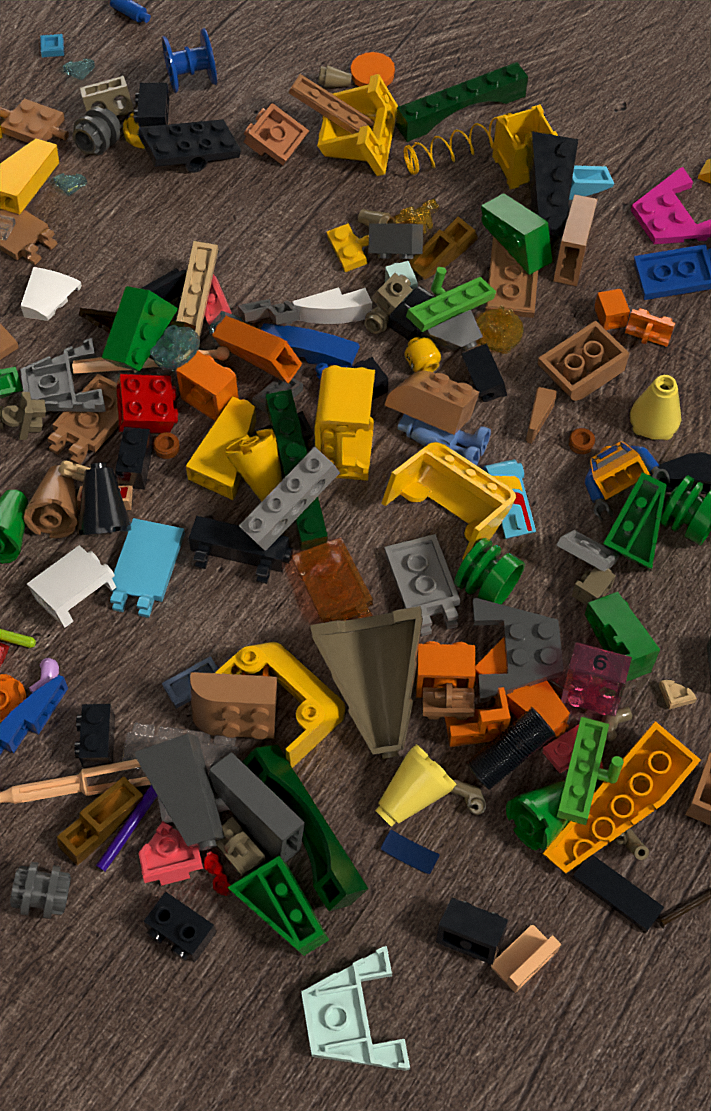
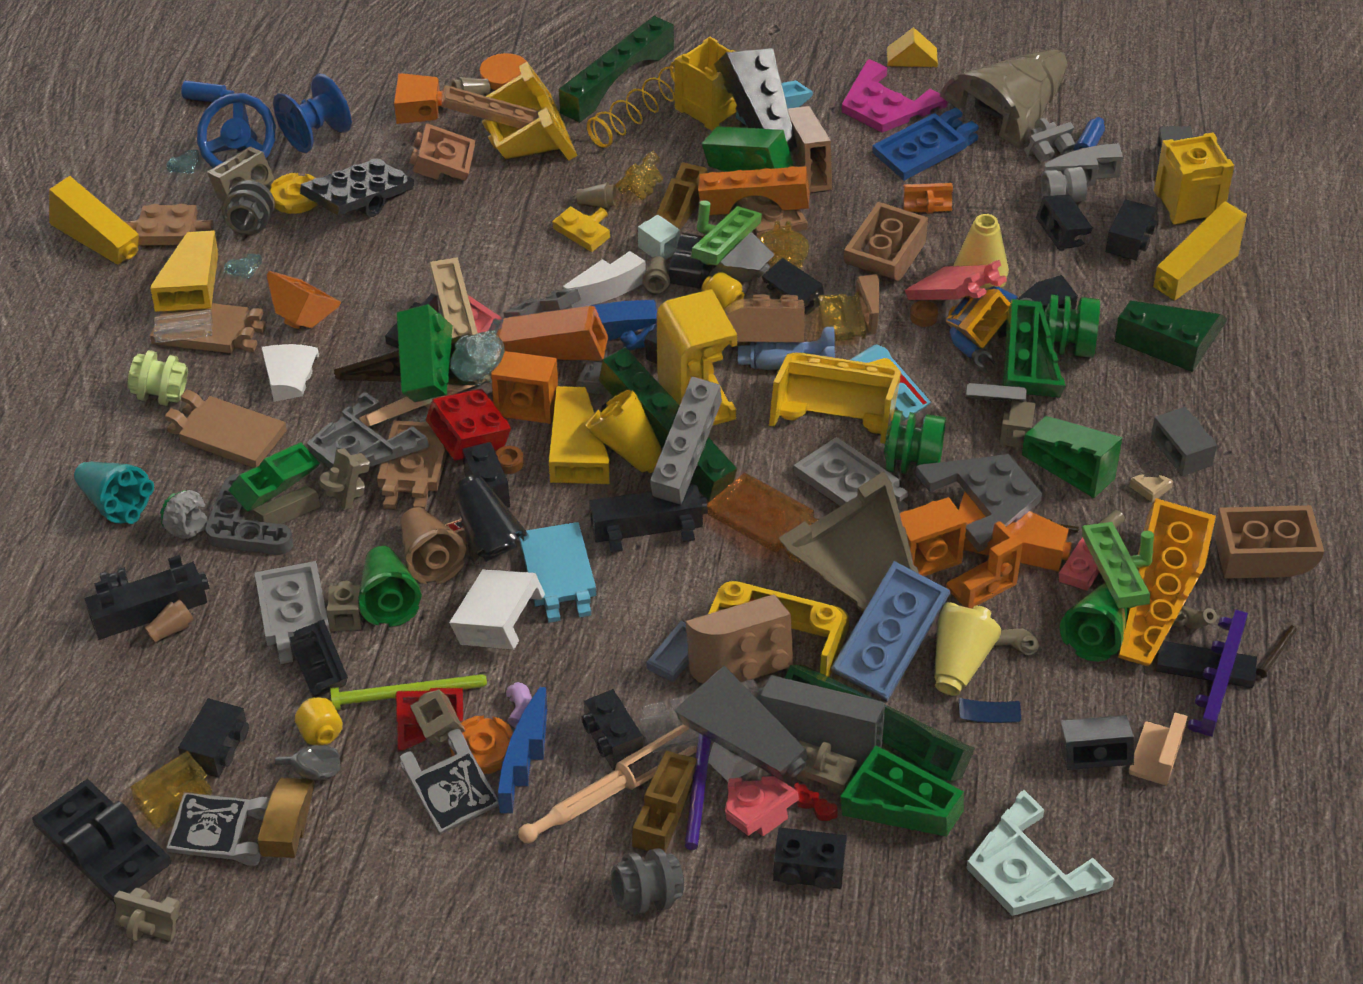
camera: 25 degrees left, 15 degrees down
(52, 45) = (139, 151): dark azure tile -> none
(72, 470) = (439, 507): tan axle -> none
(89, 232) = (299, 301): none -> orange slope
(125, 56) = (235, 131): none -> blue piece
(152, 104) = (295, 164): black brick -> none
(283, 71) = (417, 98): none -> orange torso
(362, 746) = (890, 631): none -> medium blue tile
(387, 298) = (665, 237): dark tan brick -> none
(396, 239) = (633, 200): dark grey brick -> none
(448, 702) = (948, 563): medium nougat hips -> none
(503, 755) = (1029, 584): black piece -> none
(508, 417) = (844, 314): none -> clear yellow plate
(528, 273) = (783, 185): none -> orange arch
(596, 679) = (1077, 488): clear pink brick -> none
(612, 309) = (881, 189): orange panel -> none
(617, 426) = (956, 282): none -> coral tile
(619, 913) = (1221, 675): none -> dark purple hinge

